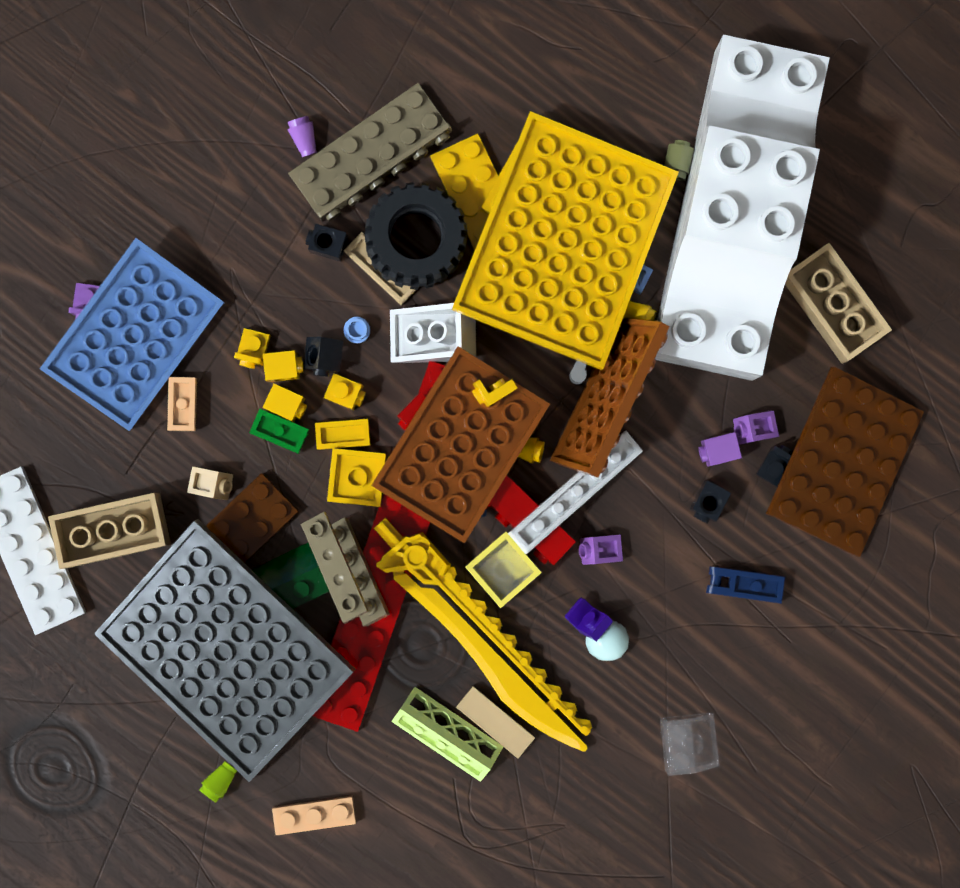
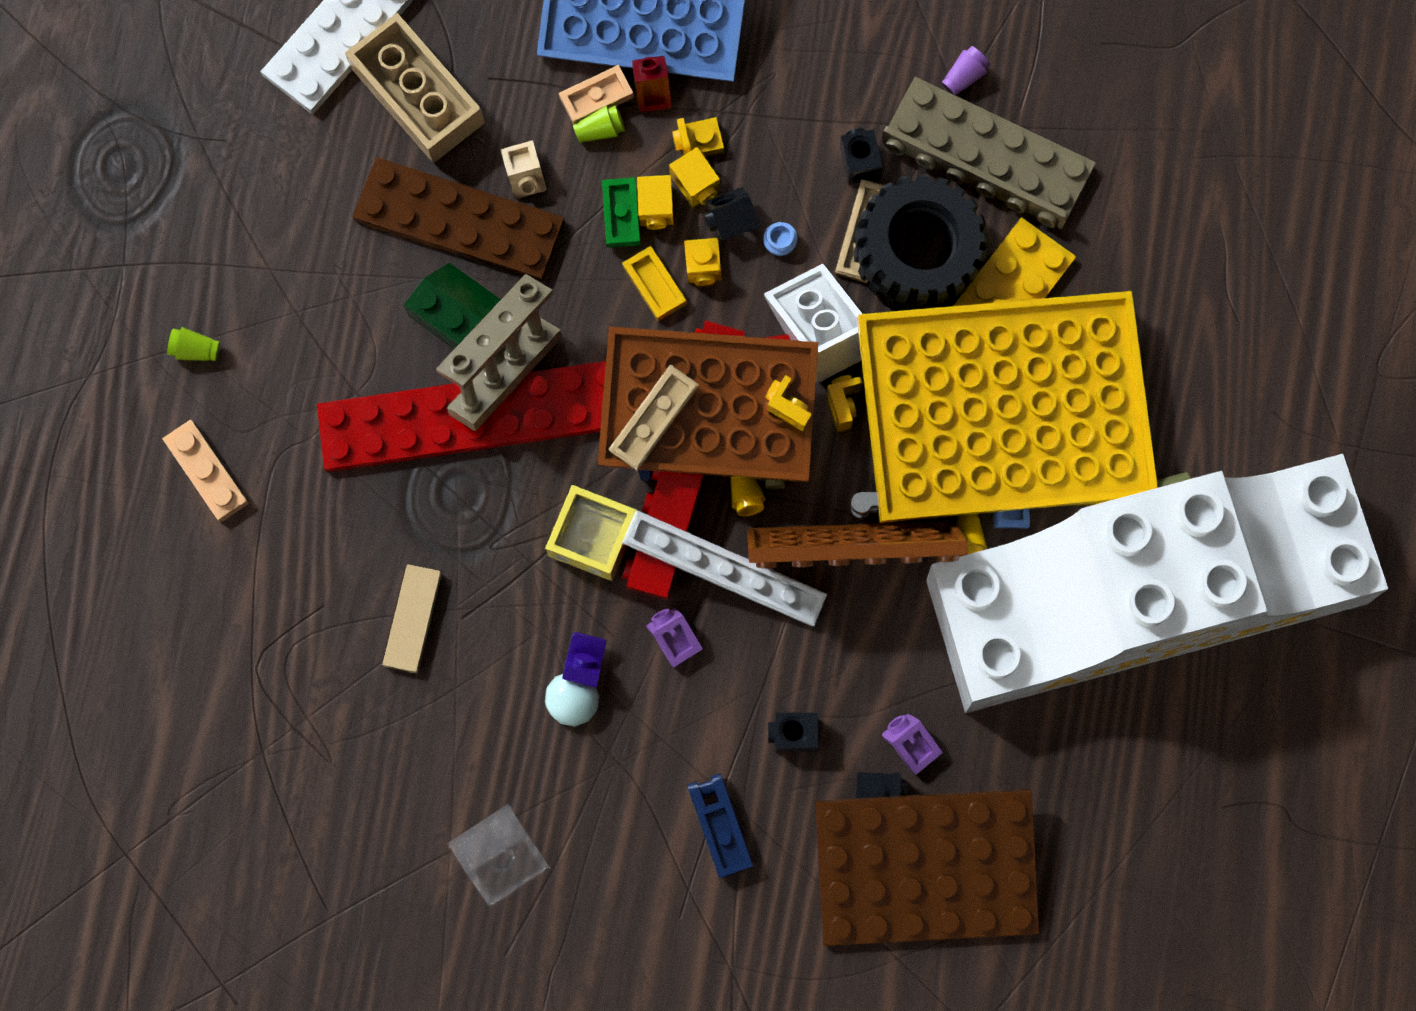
camera: 70 degrees right, 10 degrees down
(195, 360) = (652, 83): none -> dark red bracket
(206, 412) = (600, 125): none -> lime cone
(224, 650) = (342, 274): dark grey plate -> none
(353, 475) = (612, 306): yellow plate -> none
(432, 568) = (552, 447): yellow piece -> none
(445, 738) = (361, 568): yellowish green fence -> none
(453, 488) = (653, 417): none -> tan tile
(501, 352) = (842, 407): none -> yellow bracket
(720, 449) = (862, 712): medium lavender brick -> none
(836, 303) = (1108, 758): tan brick -> none

